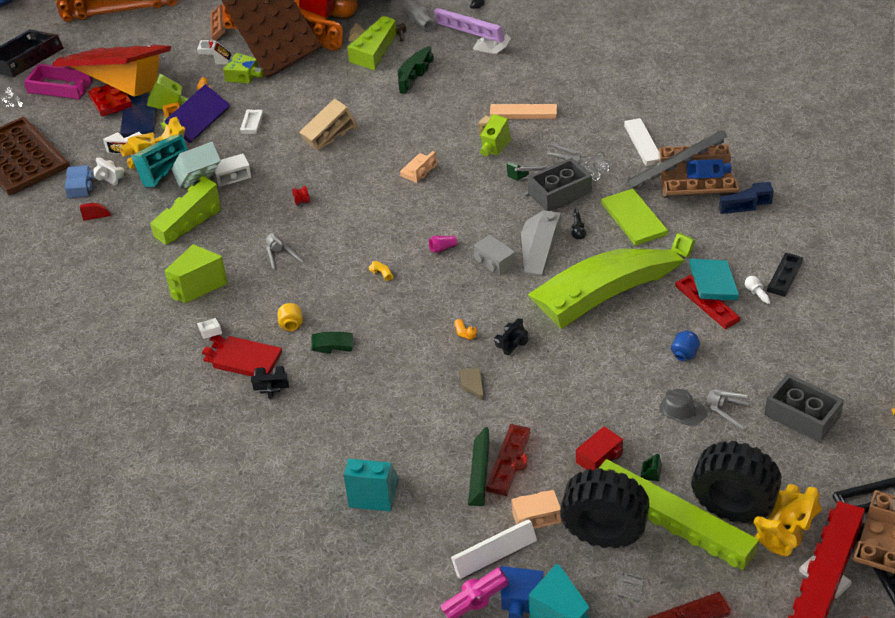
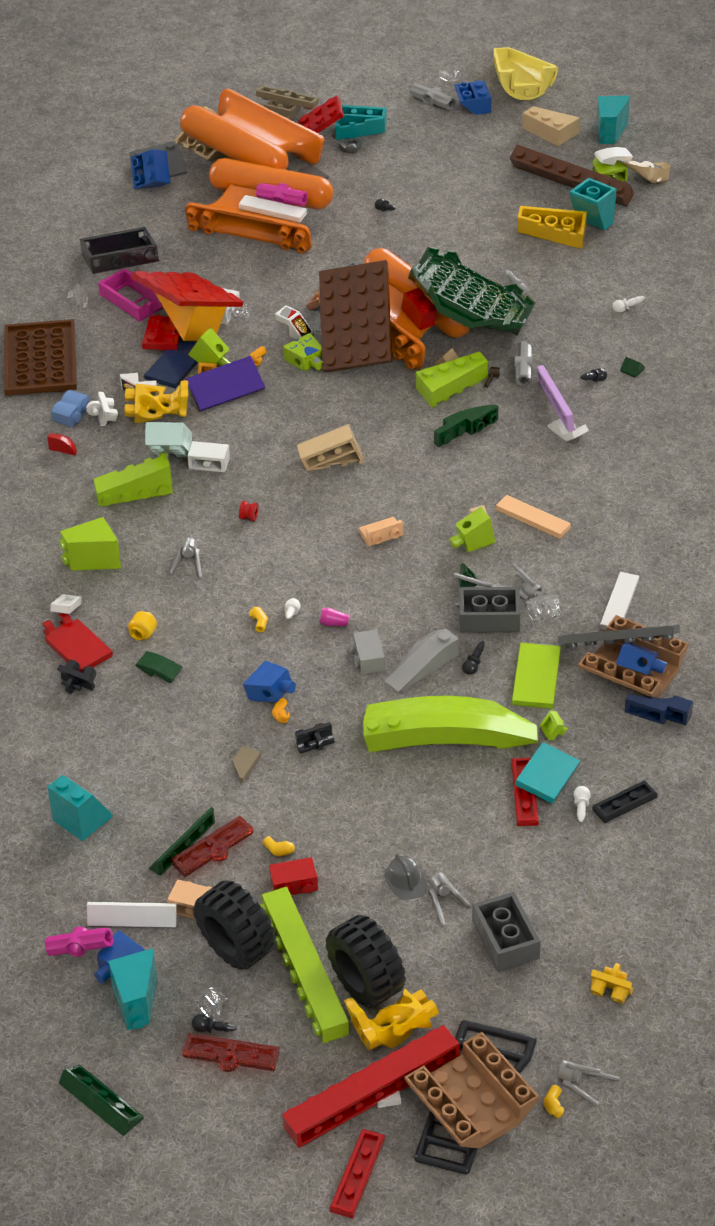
camera: 30 degrees right, 0 degrees up
(158, 159) = (138, 413): teal wedge -> none
(251, 122) = (270, 414): white tile -> none
(400, 251) = (291, 608): none -> white bar
(440, 311) = (269, 683): none -> blue torso
(562, 435) = (278, 848): none -> yellow arm
(636, 607) = (202, 1023): none -> black bar
(652, 468) = (327, 917): dark green slope -> none
(685, 345) = (459, 822): blue head -> none

